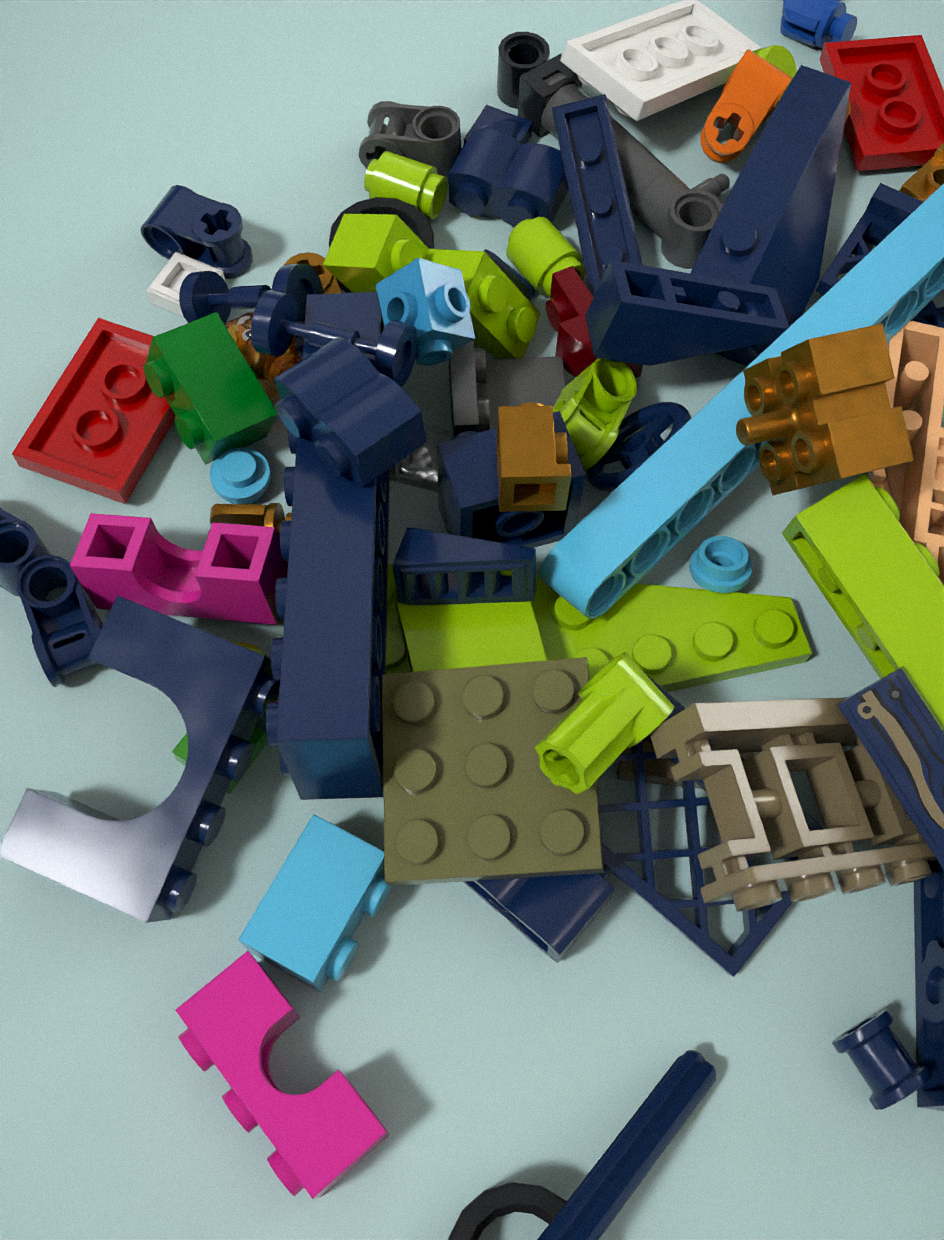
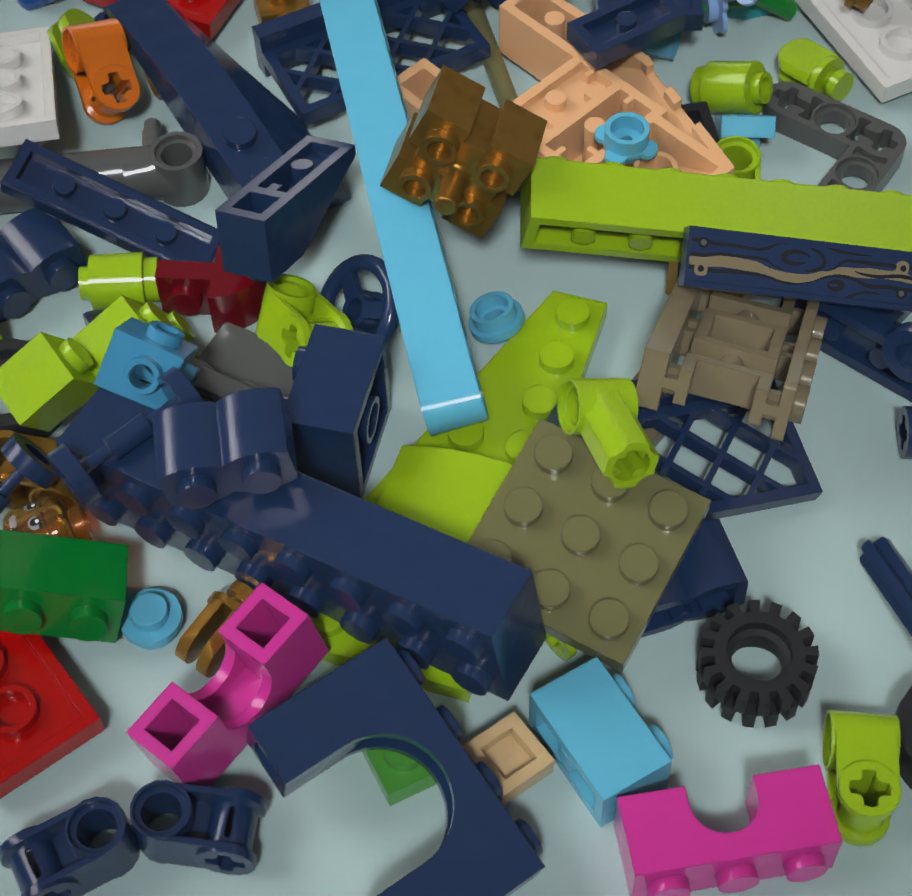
camera: 55 degrees left, 10 degrees down
(258, 831) = (511, 755): none -> tan plate
(442, 1174) = (862, 772): none -> lime piece
(461, 570) = (399, 464): dark blue slope -> none
(531, 459) = (356, 356): pearl gold brick -> none
(533, 999) = (762, 631): none -> black tyre

